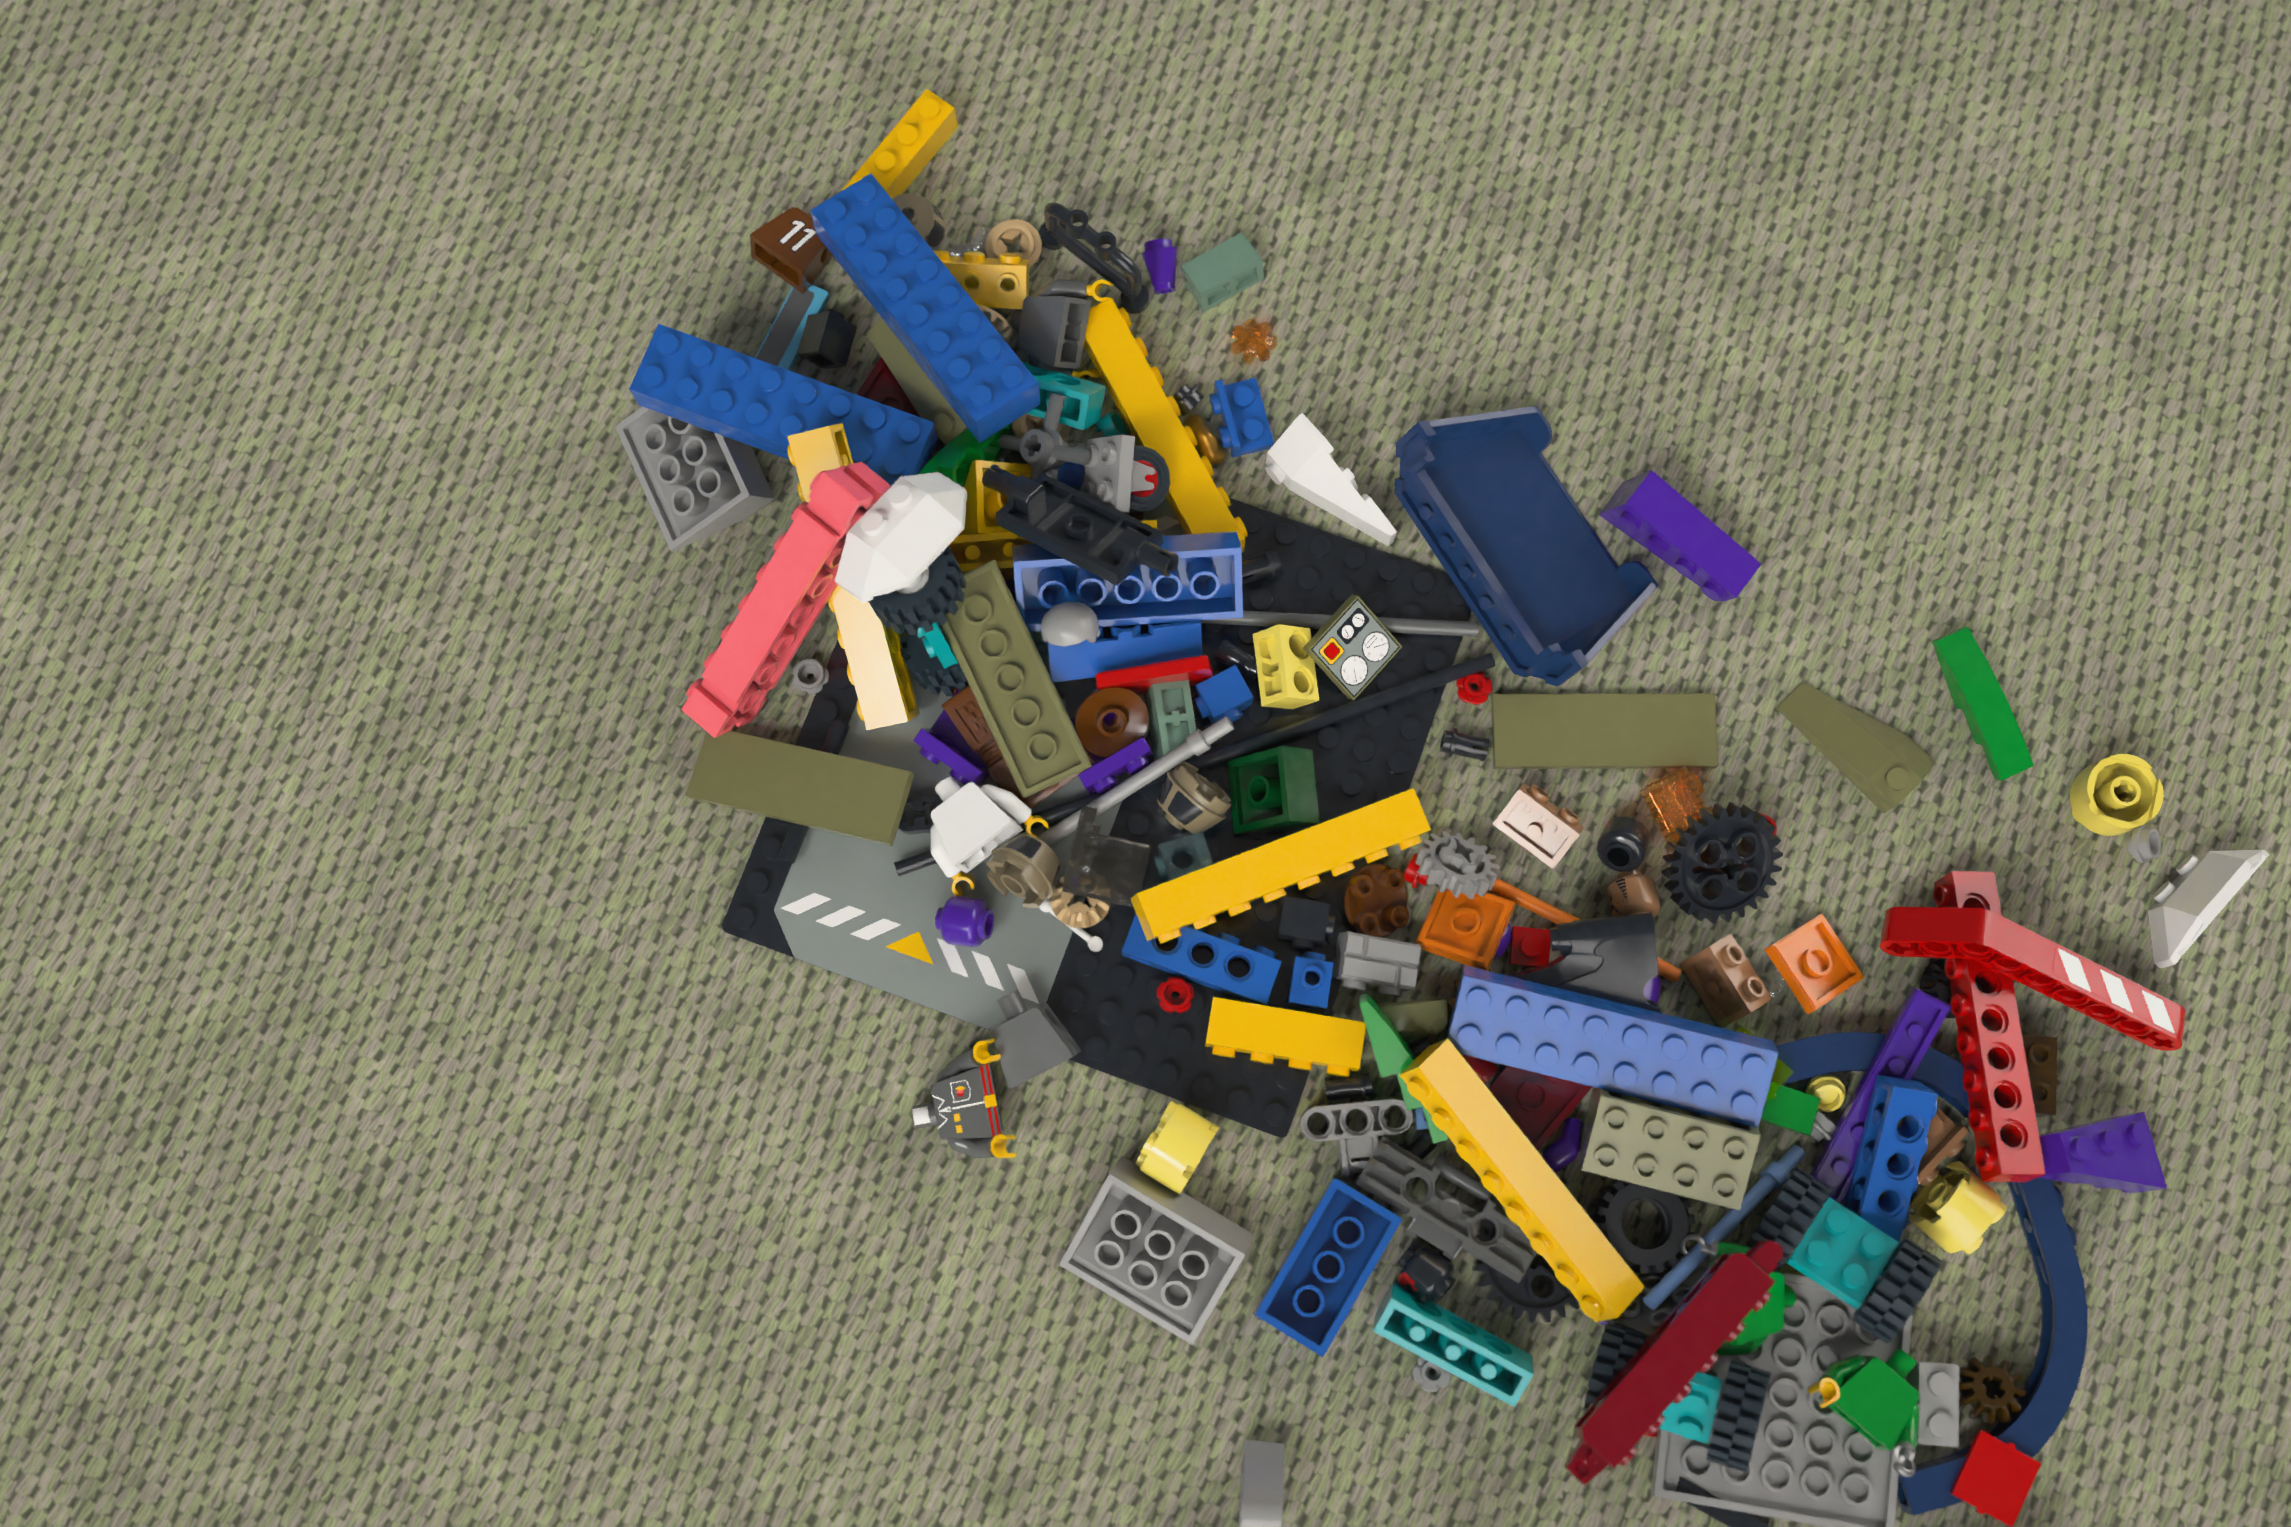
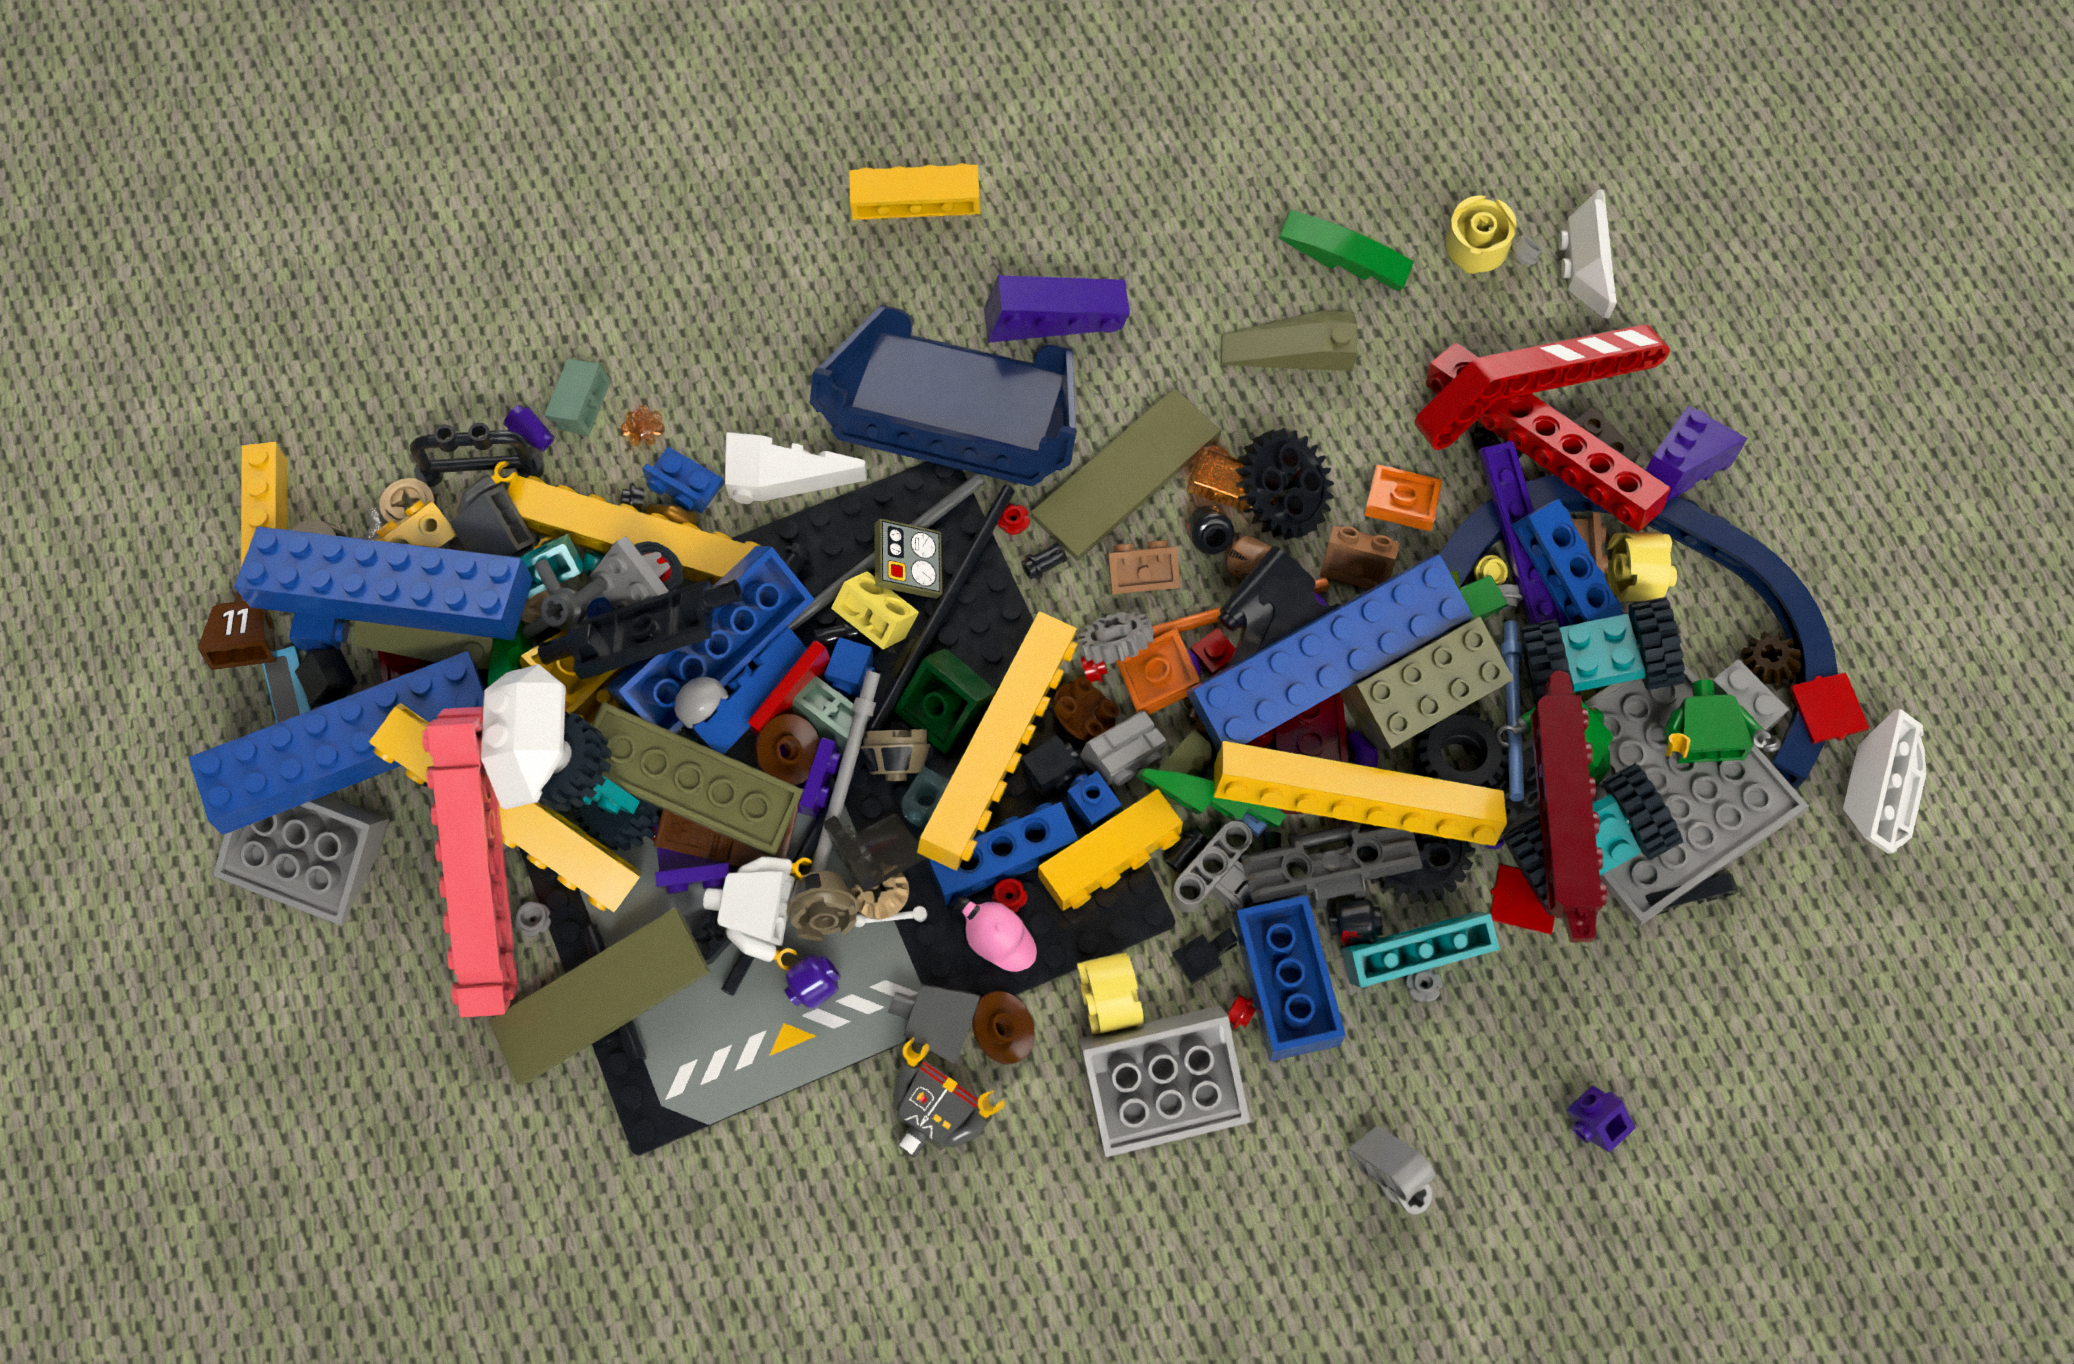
camera: 45 degrees left, 10 degrees down
(850, 300) = (318, 632): none -> blue brick
(1085, 1099) = (1003, 1027): none -> reddish brown dish
(1135, 1016) = (995, 933): none -> bright pink hair
(1267, 1254) = (1241, 1011): none -> red plate
(1277, 1181) = (1200, 958): none -> black plate
(1569, 1377) = (1517, 904): none -> red piece
(1661, 327) = (914, 191): none -> yellow brick

